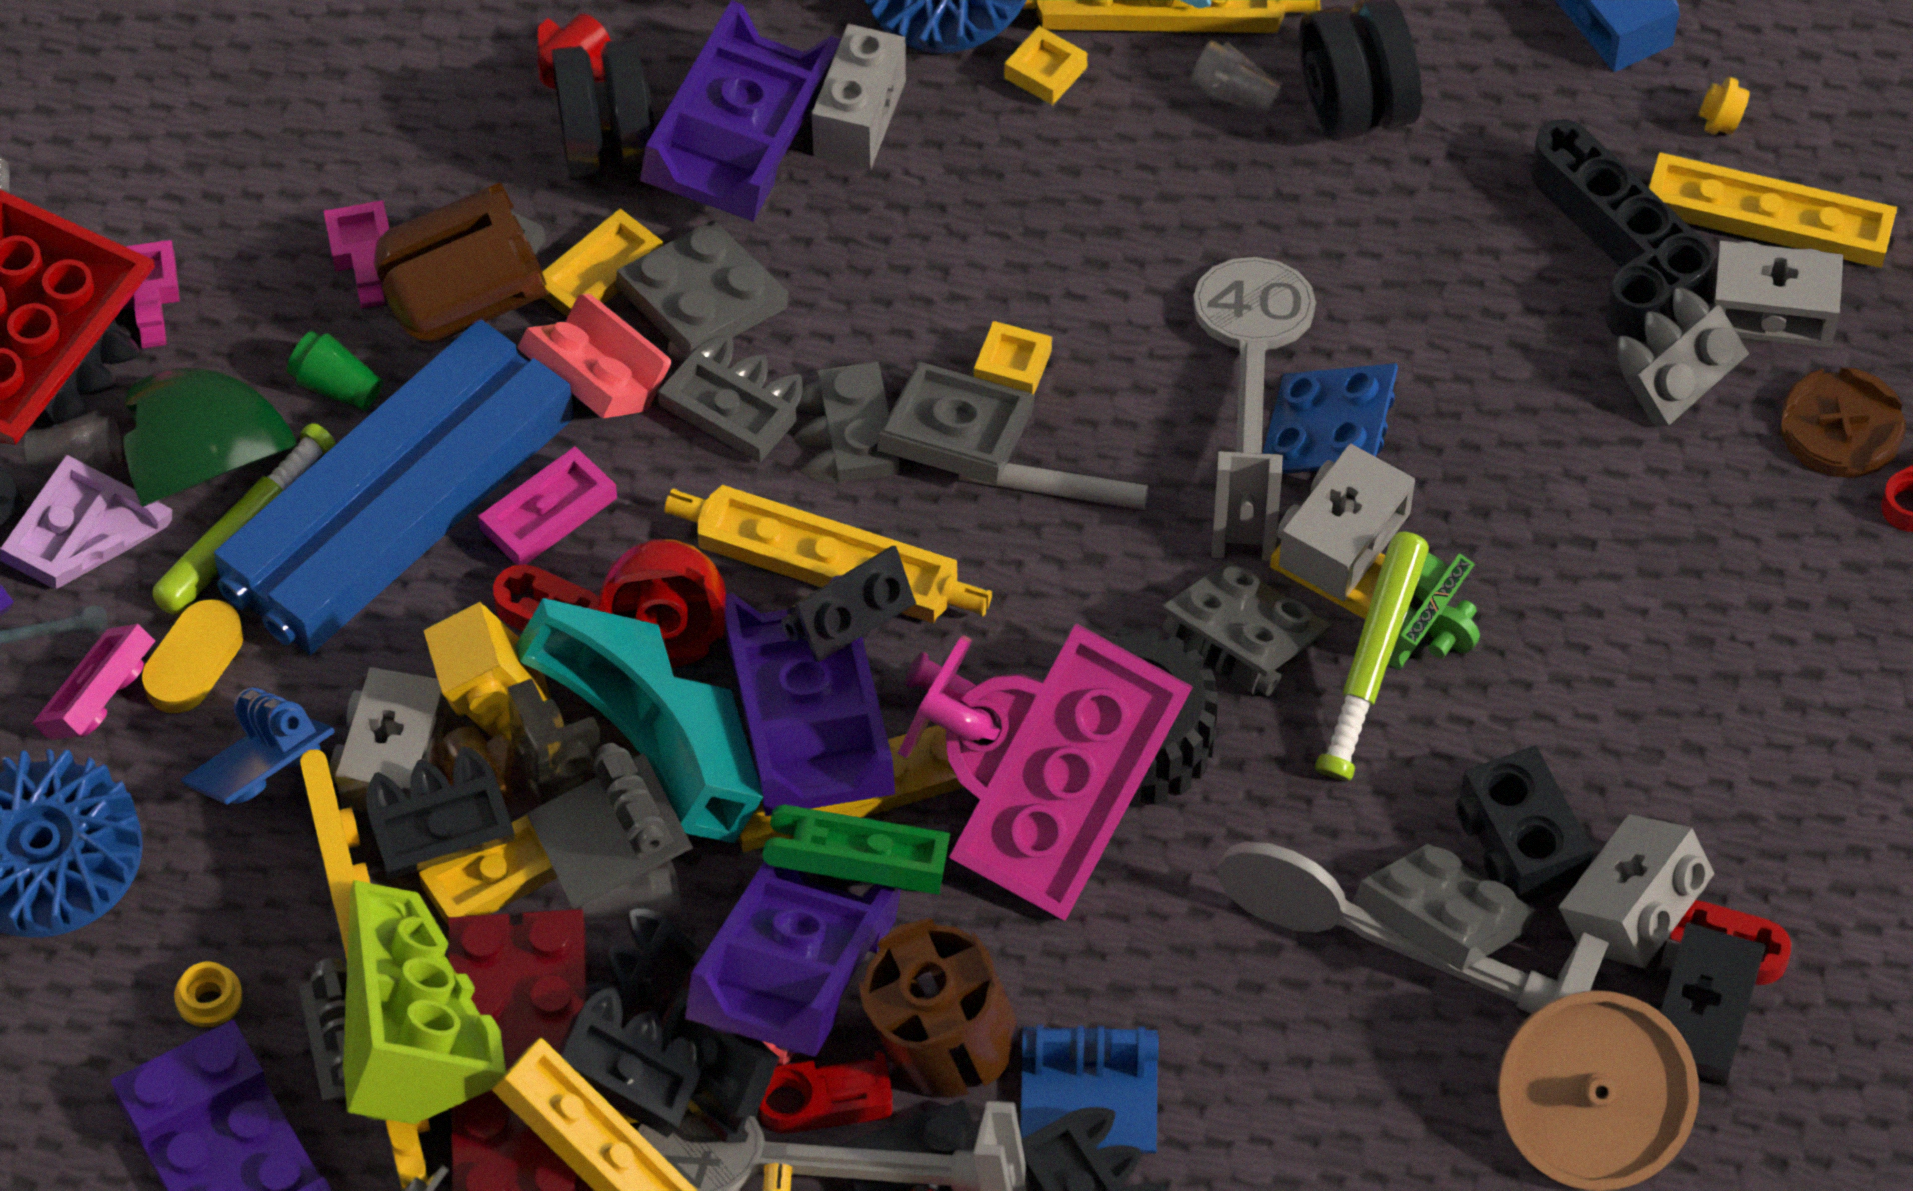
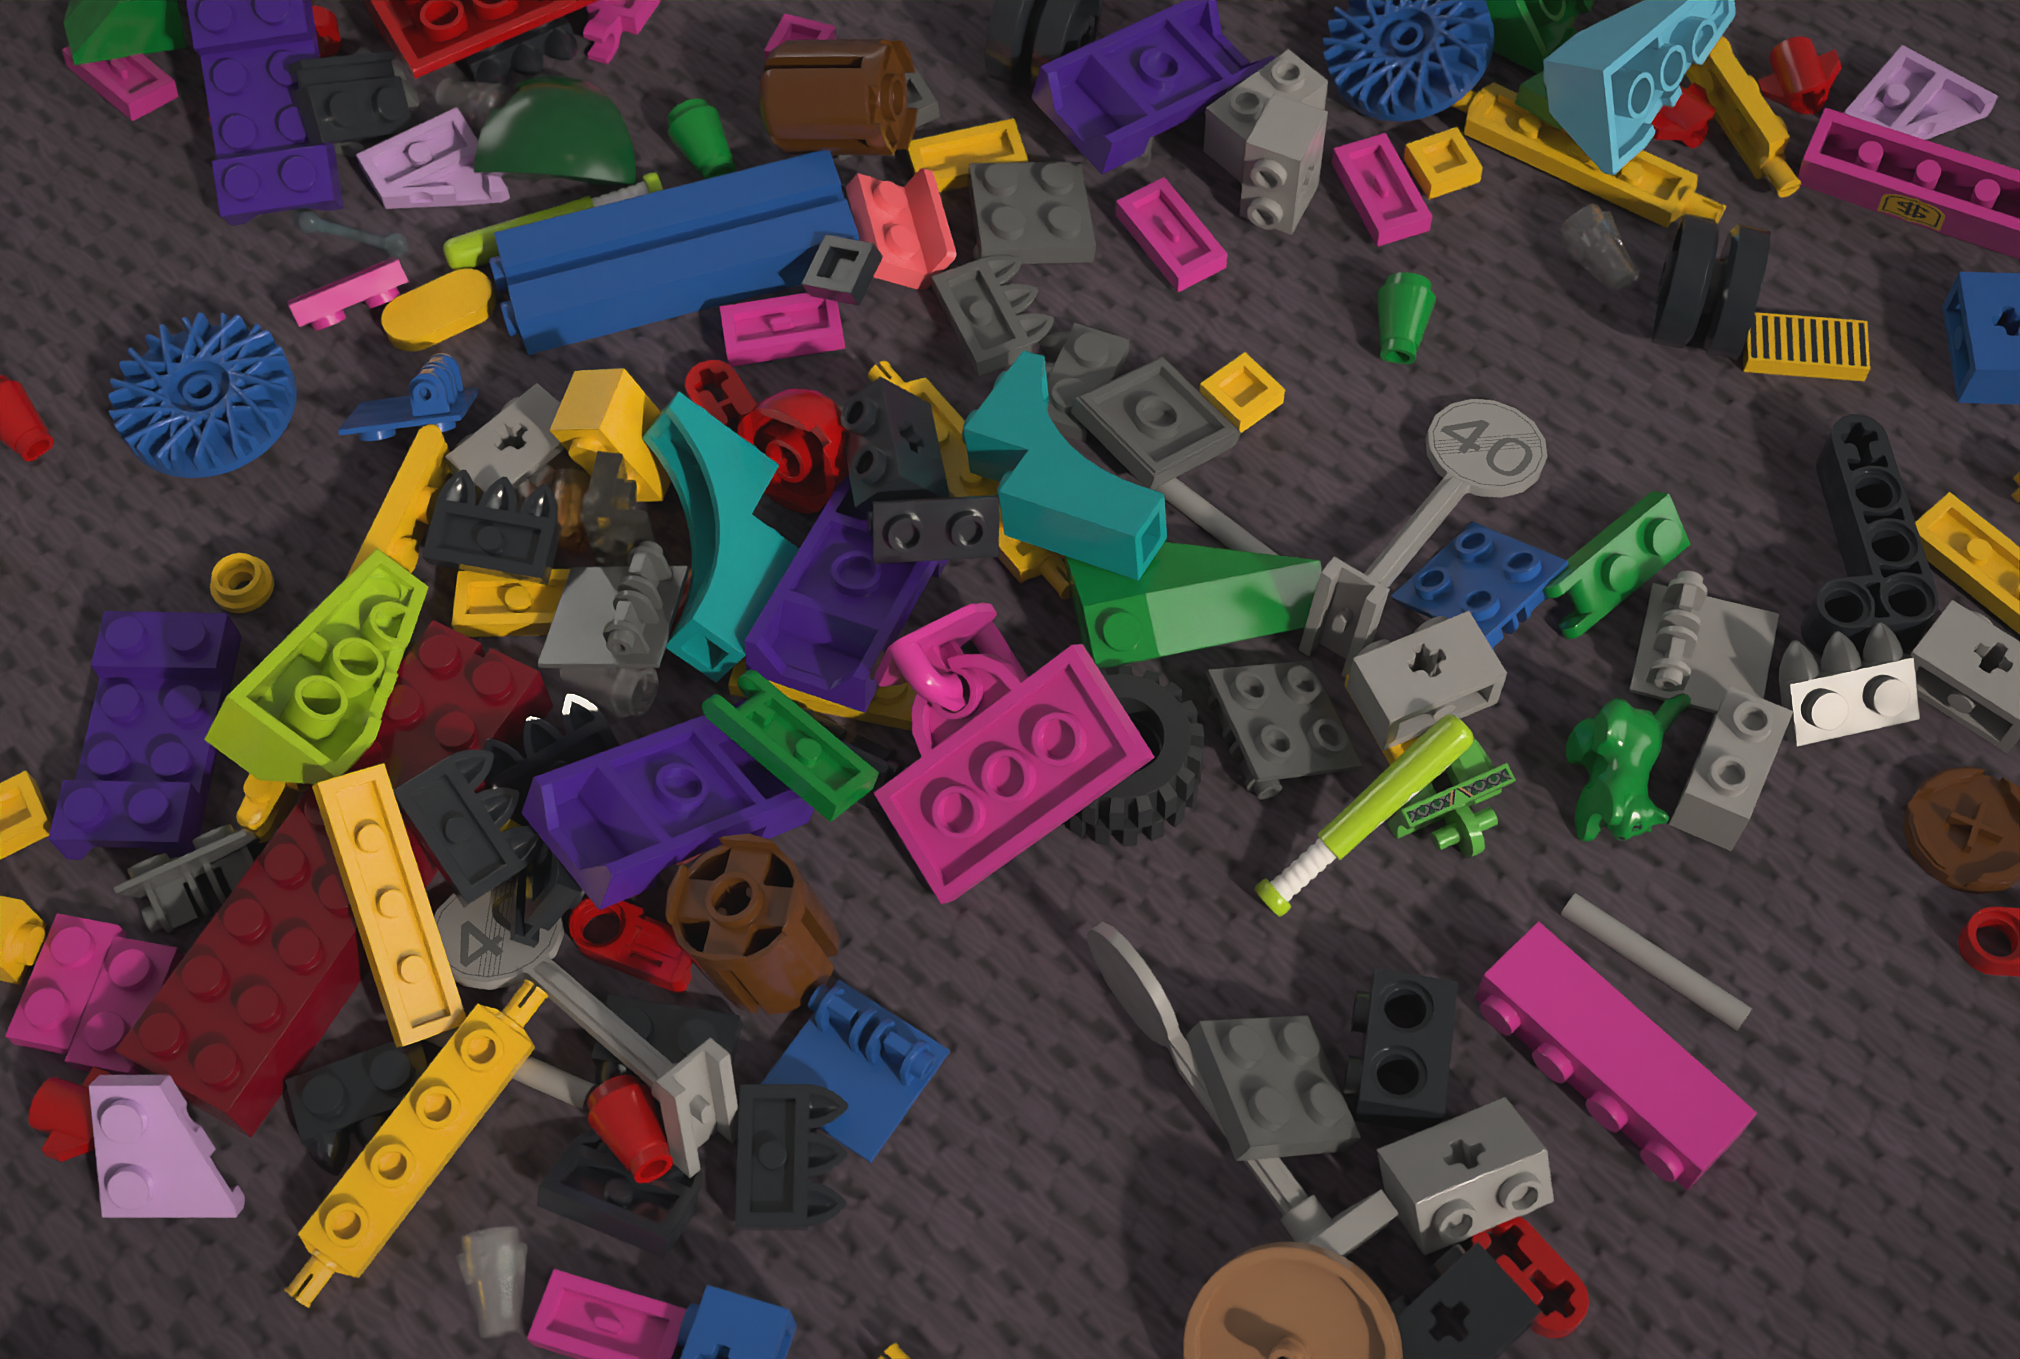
camera: 35 degrees right, 5 degrees up
(582, 423) = (842, 270): none -> black plate
(757, 557) = (891, 446): none -> black brick
(846, 247) = (1171, 234): none -> dark pink plate
(915, 134) = (1282, 163): none -> light grey brick
(933, 518) = (1050, 489): none -> teal arch
(1007, 115) = (1381, 189): none -> dark pink plate
(1090, 560) = (1189, 602): none -> green wedge
(1107, 221) = (1403, 315): none -> green cone
(1432, 345) = (1618, 561): none -> green hinge
(1469, 82) = (1807, 347): none -> yellow tile
(1541, 509) = (1619, 754): none -> green animal
(1545, 384) = (1701, 645): none -> light grey hinge
(1632, 468) = (1731, 768): none -> light grey brick
(1668, 655) = (1656, 961): none -> light grey bar
(1685, 742) = (1612, 1056): none -> dark pink brick

